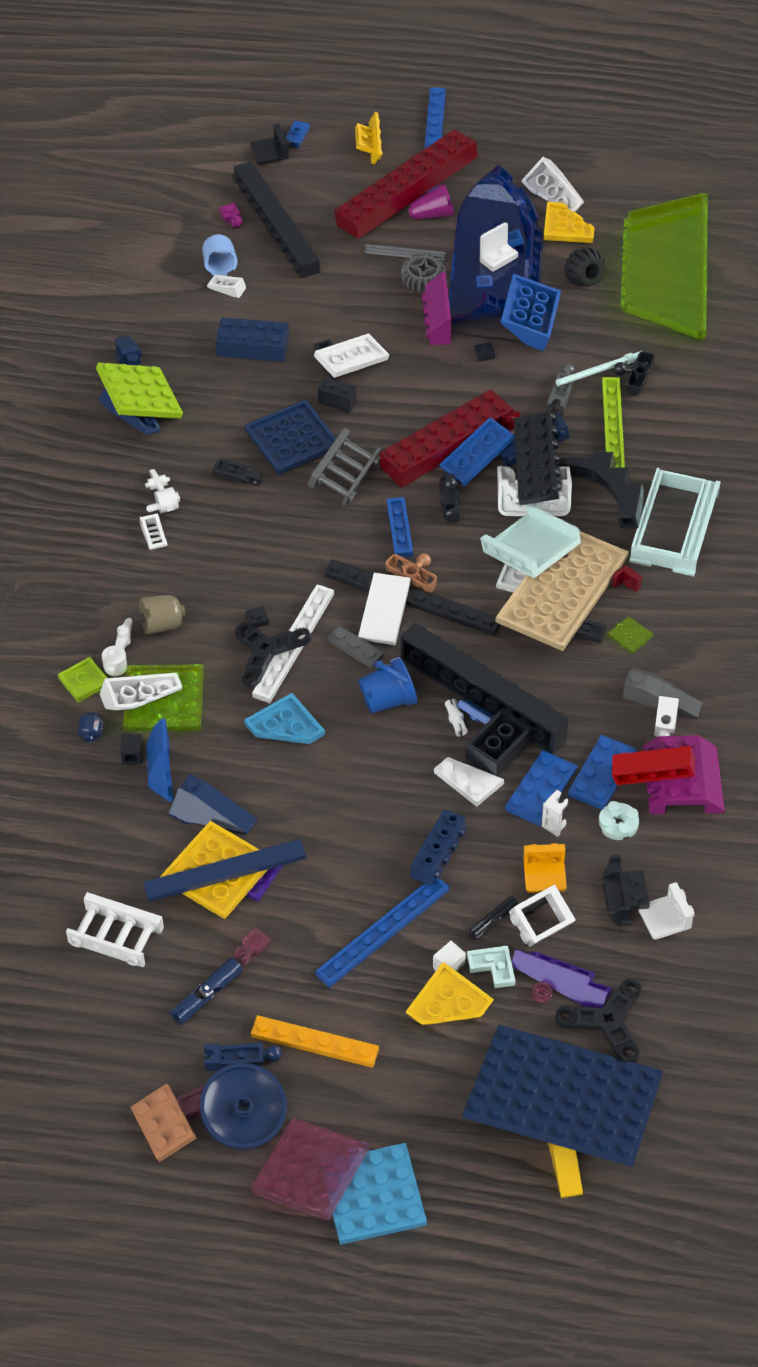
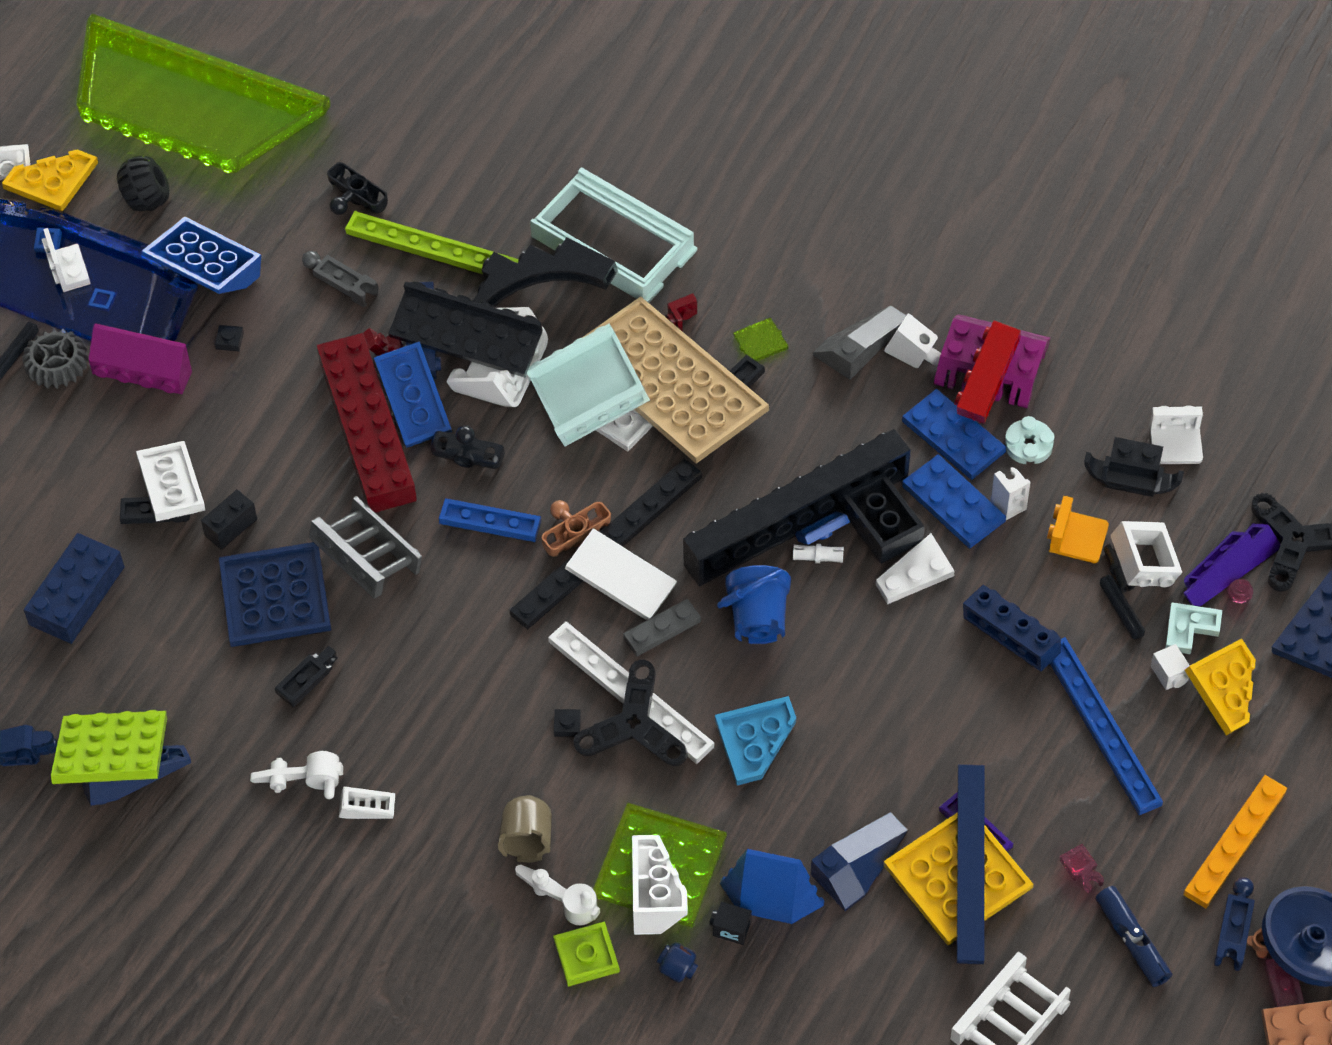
camera: 70 degrees left, 5 degrees up
(627, 359) = (323, 196): light aqua bar -> none

